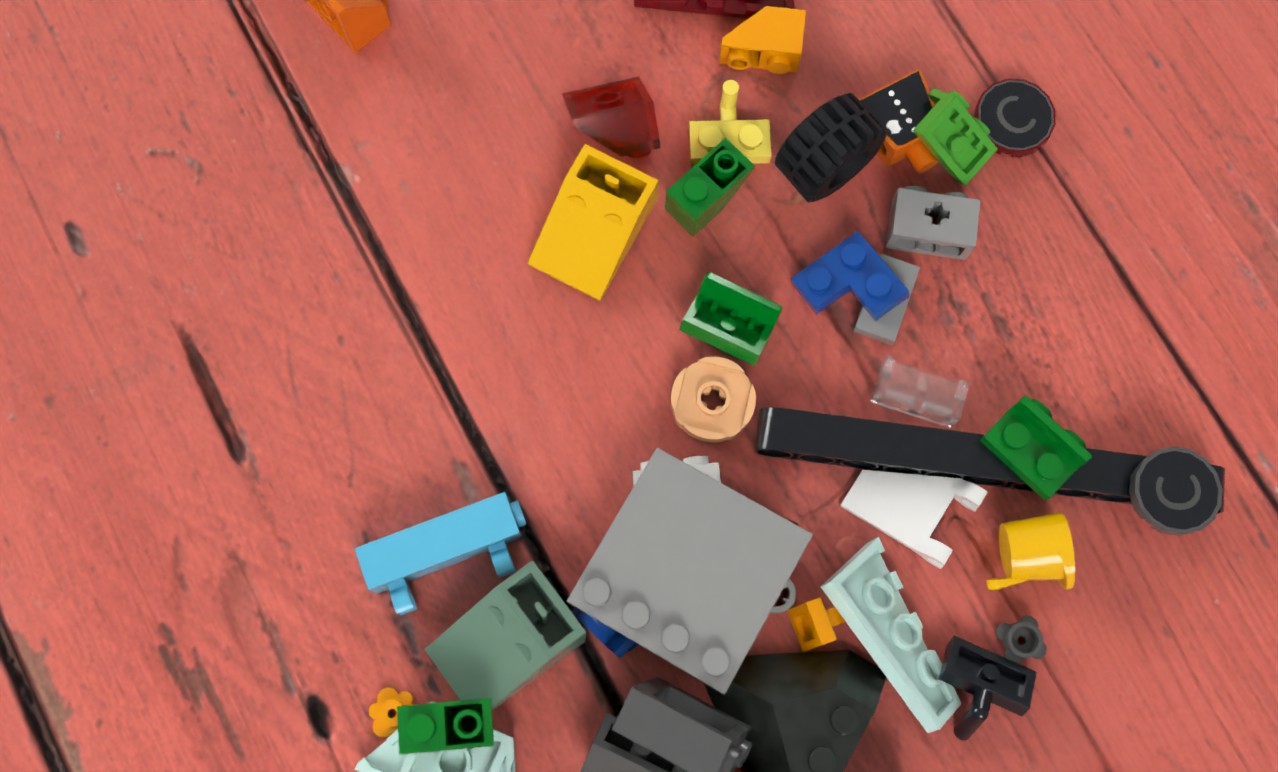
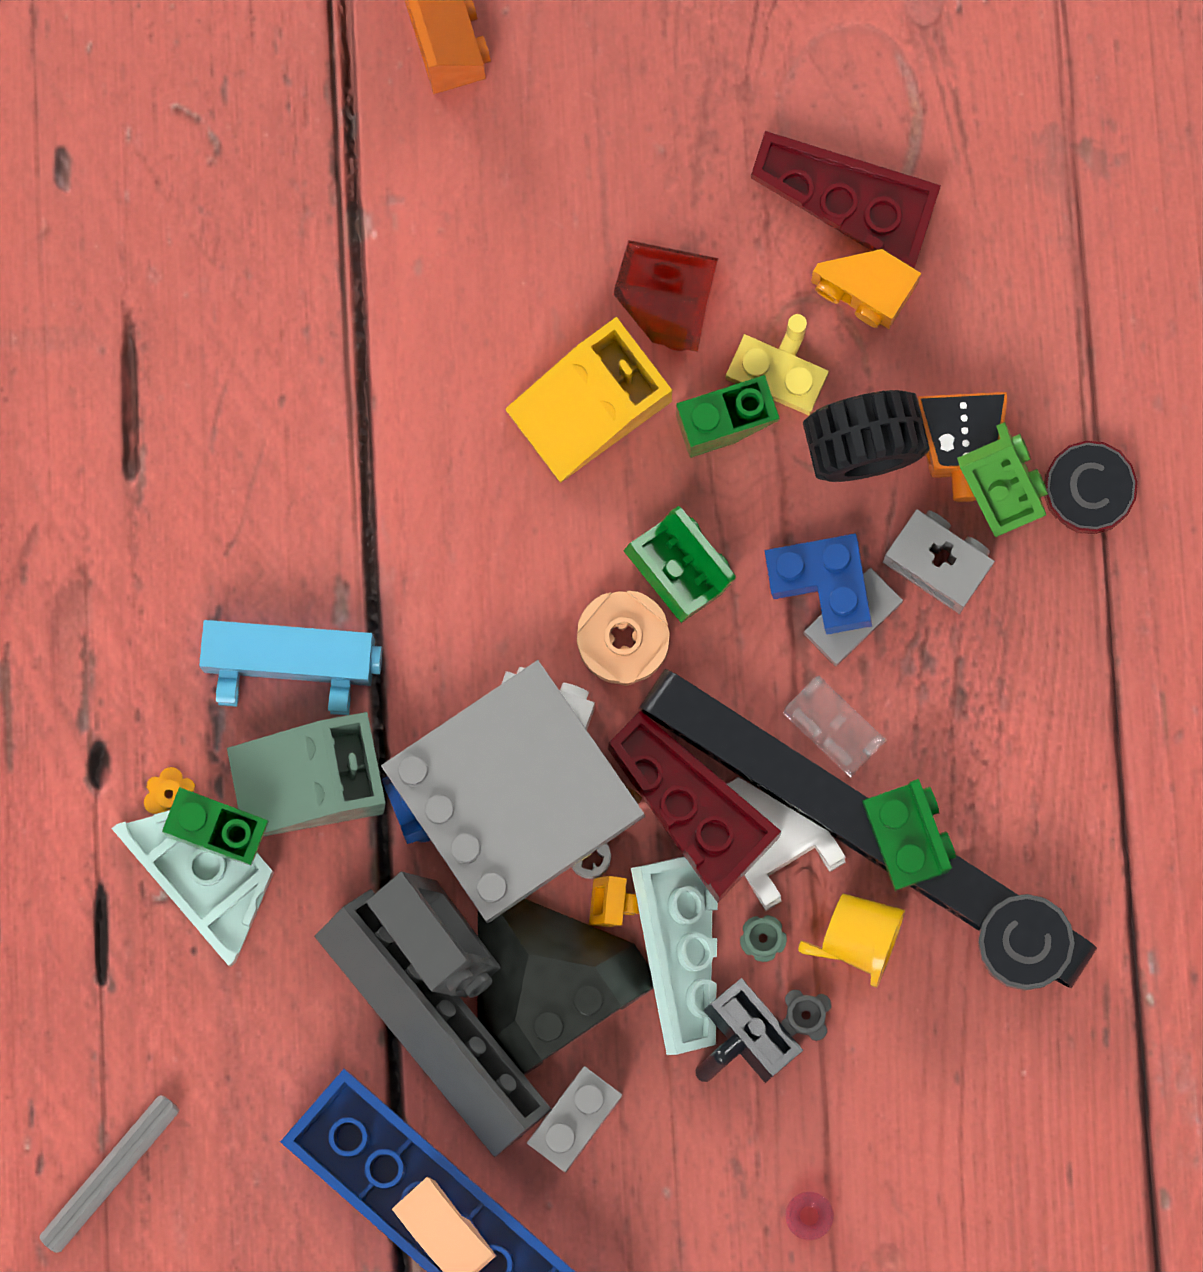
camera: 30 degrees right, 5 degrees up
(849, 511) = (698, 810): none -> dark red wing
(962, 587) = (776, 938): none -> sand green plate

